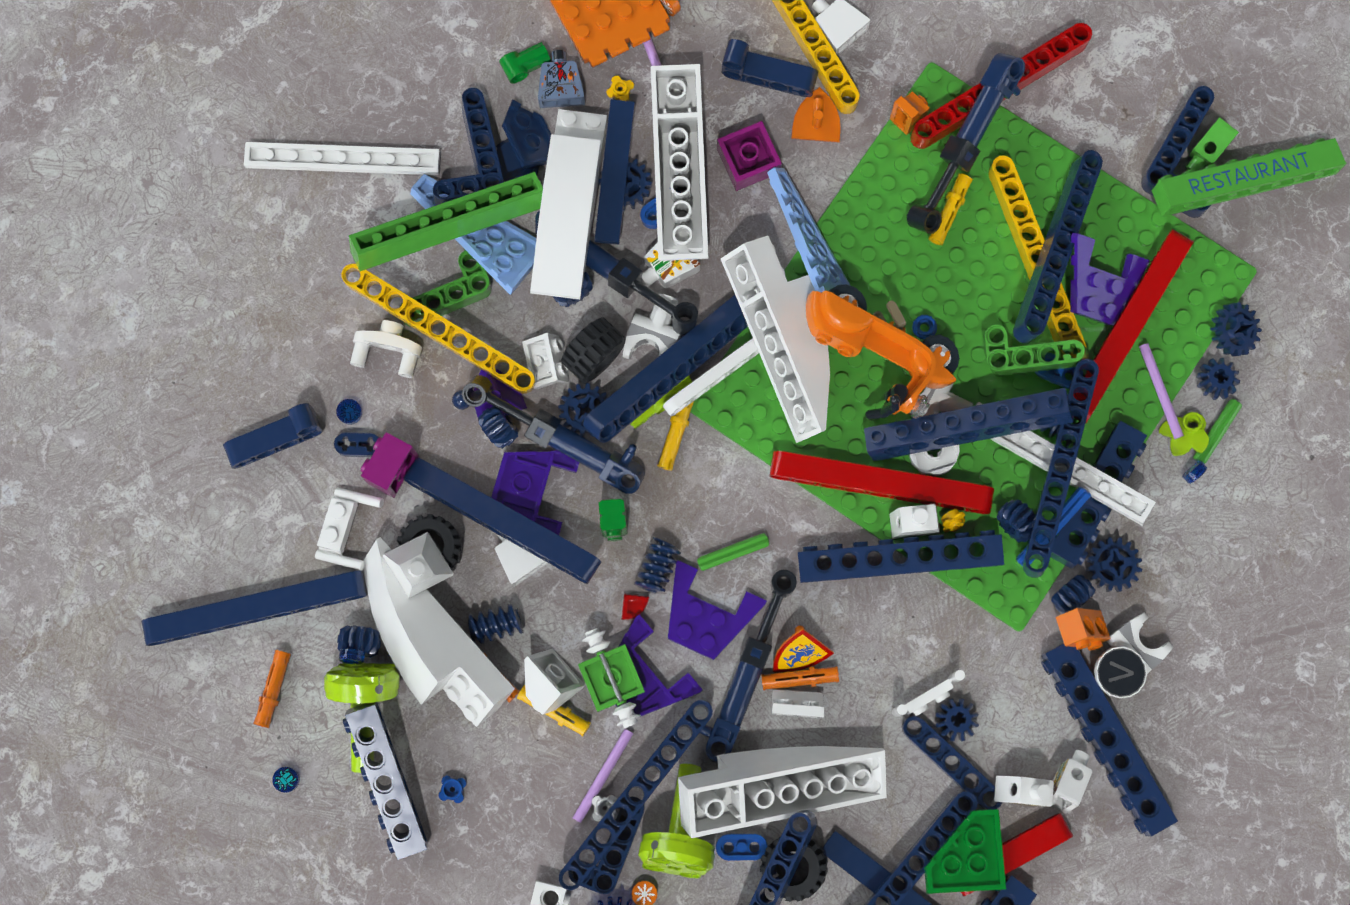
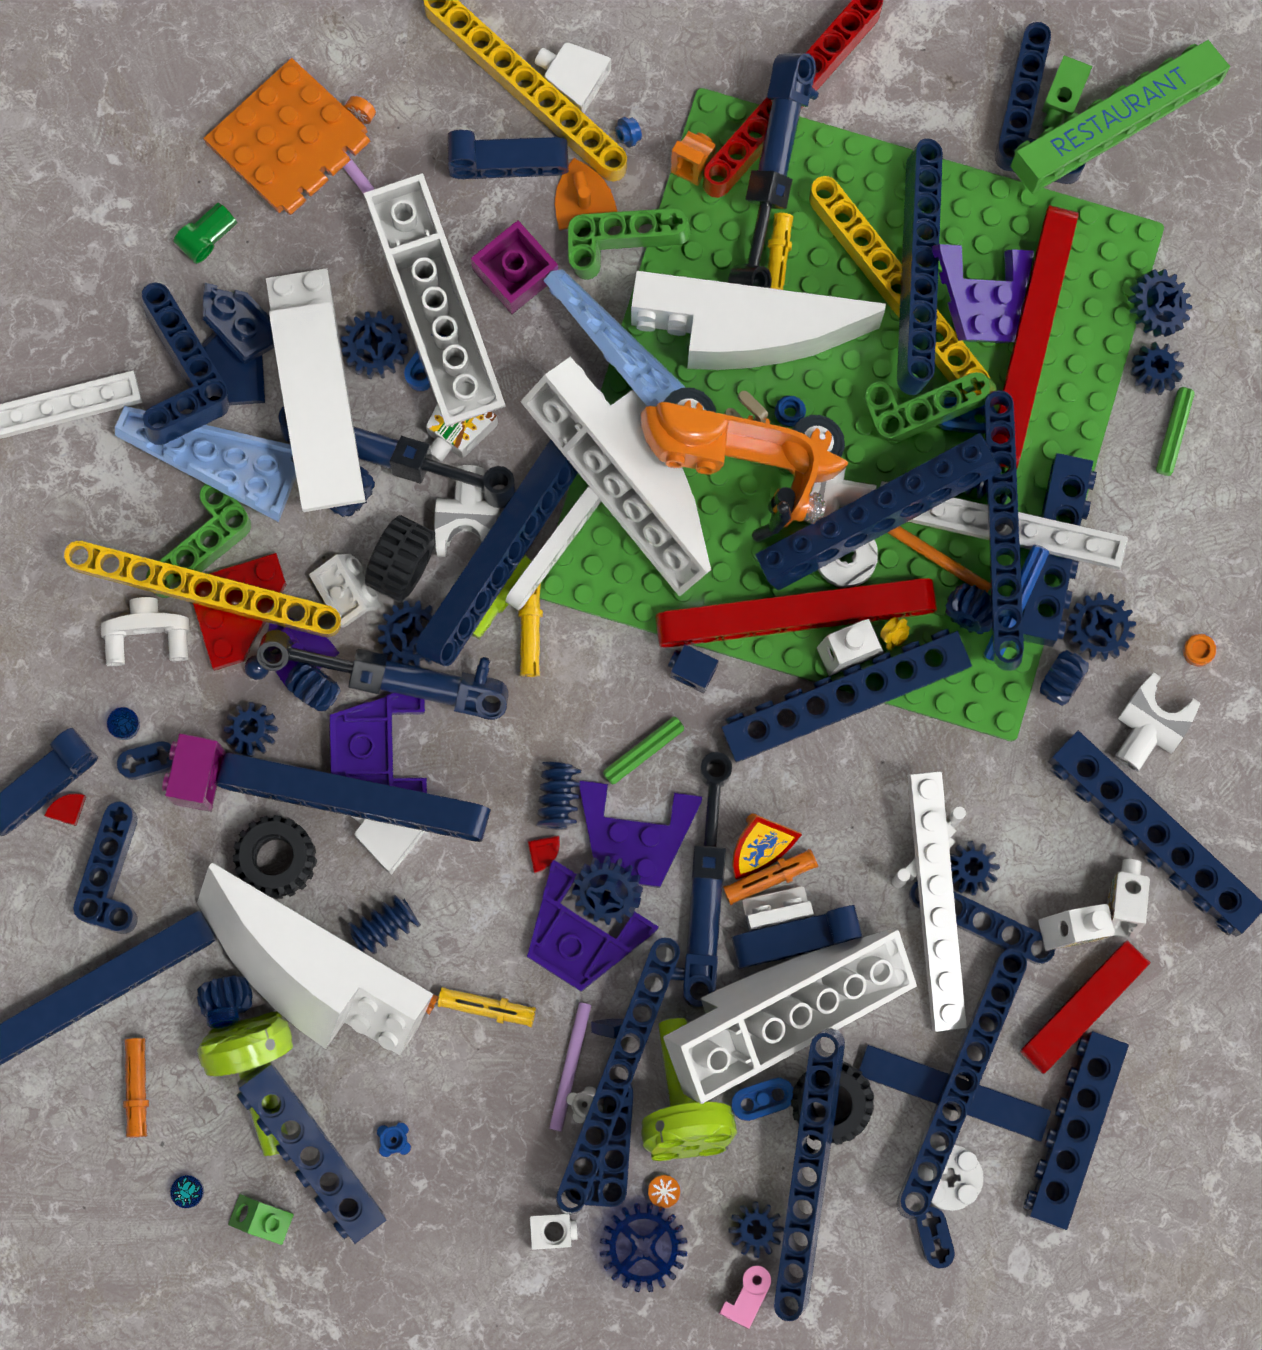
camera: 20 degrees left, 0 degrees up
(287, 463) = (66, 809): none -> red tile
(307, 517) = (113, 866): none -> dark blue beam
(334, 819) = (261, 1220): none -> bright green bracket
(338, 525) = (153, 865): white plate -> none
(418, 565) = (269, 881): white slope -> none
(440, 453) = (253, 739): none -> dark blue gear
(446, 221) = (173, 456): bright green brick -> none
(450, 370) = (232, 635): none -> red plate
(549, 681) = (471, 973): white slope -> none
(560, 83) = (257, 245): sand blue torso -> none
(611, 678) = (544, 946): bright green plate -> none
(613, 519) = (487, 755): green brick -> none
(614, 172) = (358, 334): dark blue tile -> none
(626, 86) = (336, 239): yellow plate -> none
(639, 754) = (606, 1027): none -> dark blue tile
(672, 650) = (623, 889): none -> dark blue gear
(789, 500) = (692, 668): none -> dark blue brick
(805, 731) = (796, 937): none -> dark blue beam
(842, 158) = (627, 238): none -> bright green beam
(866, 79) = (628, 131): none -> blue plate
(912, 251) = (745, 323): none -> white slope
(921, 737) = (936, 901): none -> white plate
(969, 857) = (1036, 1025): green plate -> none
(1005, 474) = (939, 558): none -> orange bar
(1083, 628) = (1088, 713): orange brick -> none
(1120, 672) = (1147, 751): black tile -> none
(1161, 391) = (1094, 403): lavender bar -> none
(1185, 605) = (1199, 650): none -> orange tile
(1193, 437) = (1138, 450): lime plate -> none
(1194, 472) = (1163, 487): clear blue tile -> none

